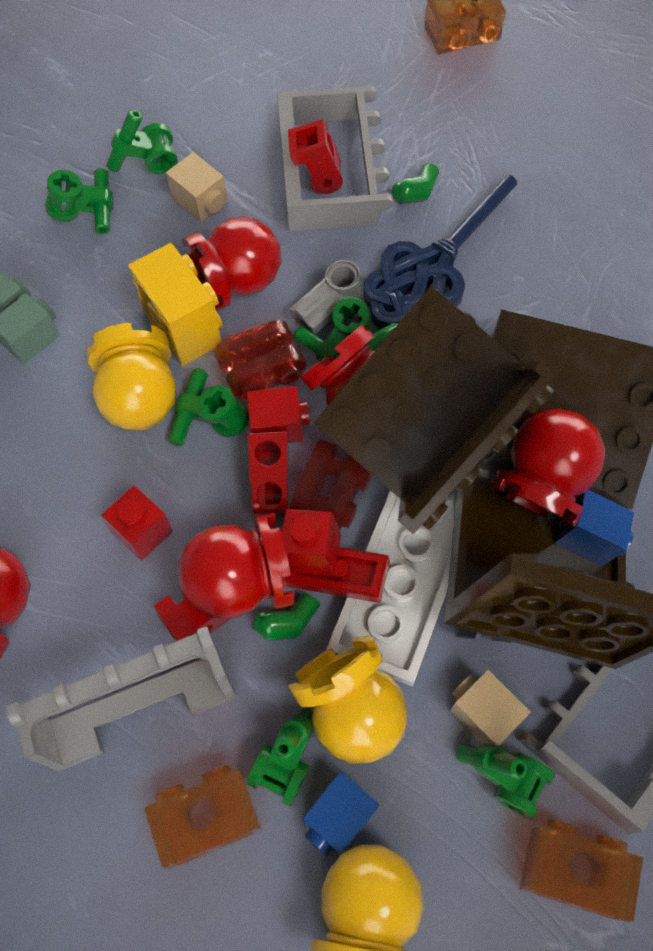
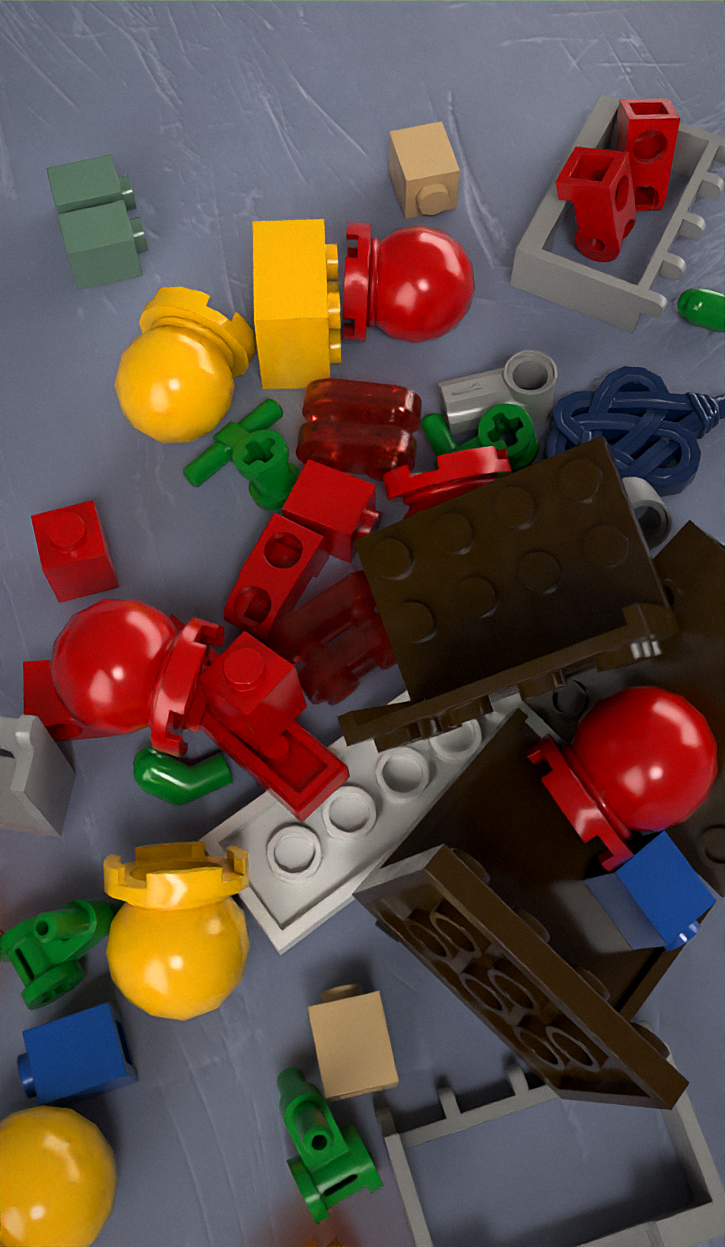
camera: 30 degrees right, 0 degrees up
(80, 197) = (271, 116): green piece -> none
(143, 145) = (387, 84): green piece -> none
(324, 101) = (649, 134): none -> red leg

